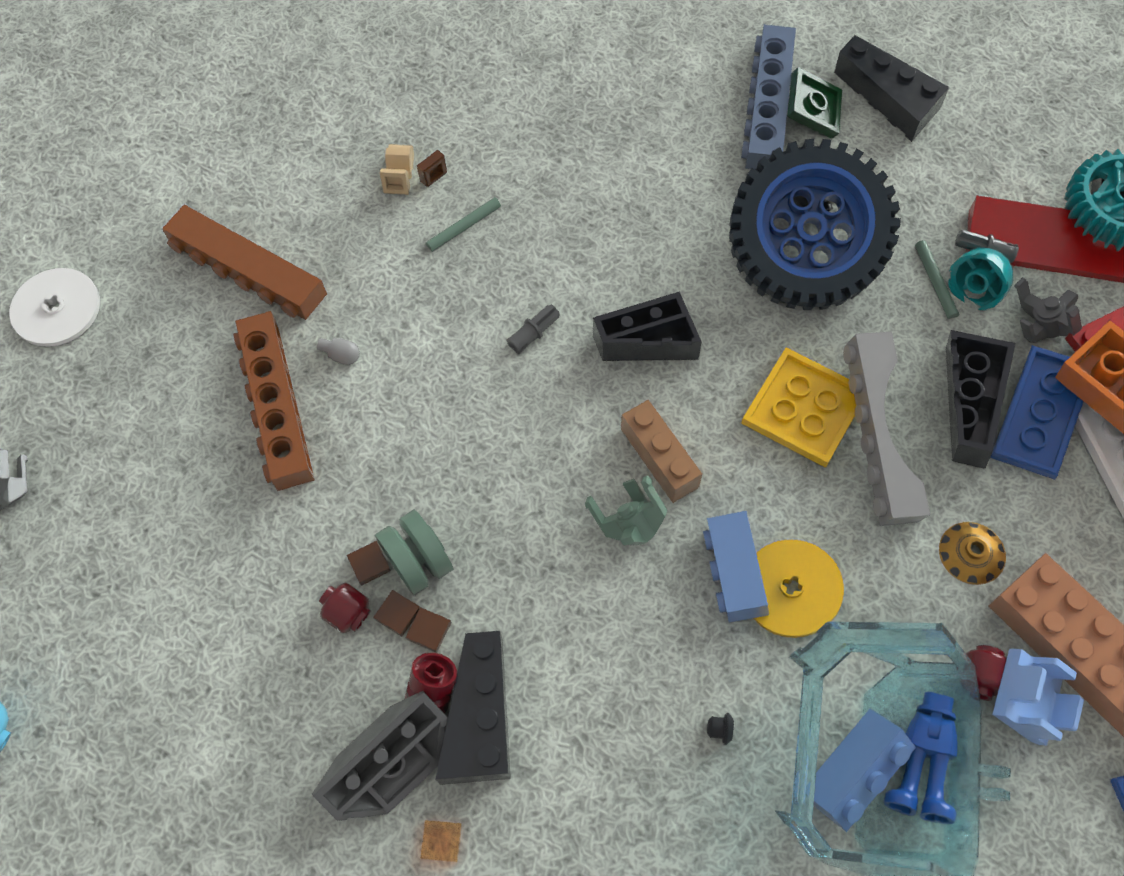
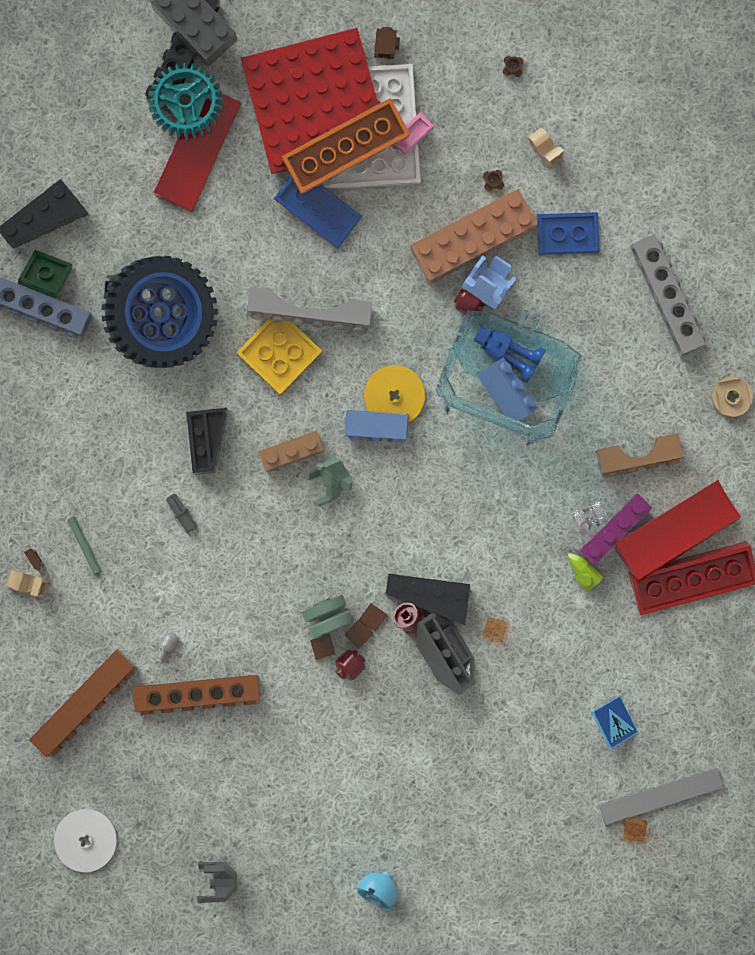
camera: 85 degrees left, 20 degrees up
(721, 728) = (467, 459): black piece -> none
(936, 279) = (205, 237): sand green bar -> none
(963, 562) = (391, 291): pearl gold dish -> none
(971, 240) = (193, 198): dark grey axle -> none
(975, 393) = (294, 243): black wedge -> none
(981, 271) = (215, 206): teal cylinder -> none
(1052, 315) = (252, 178): dark grey piece -> none

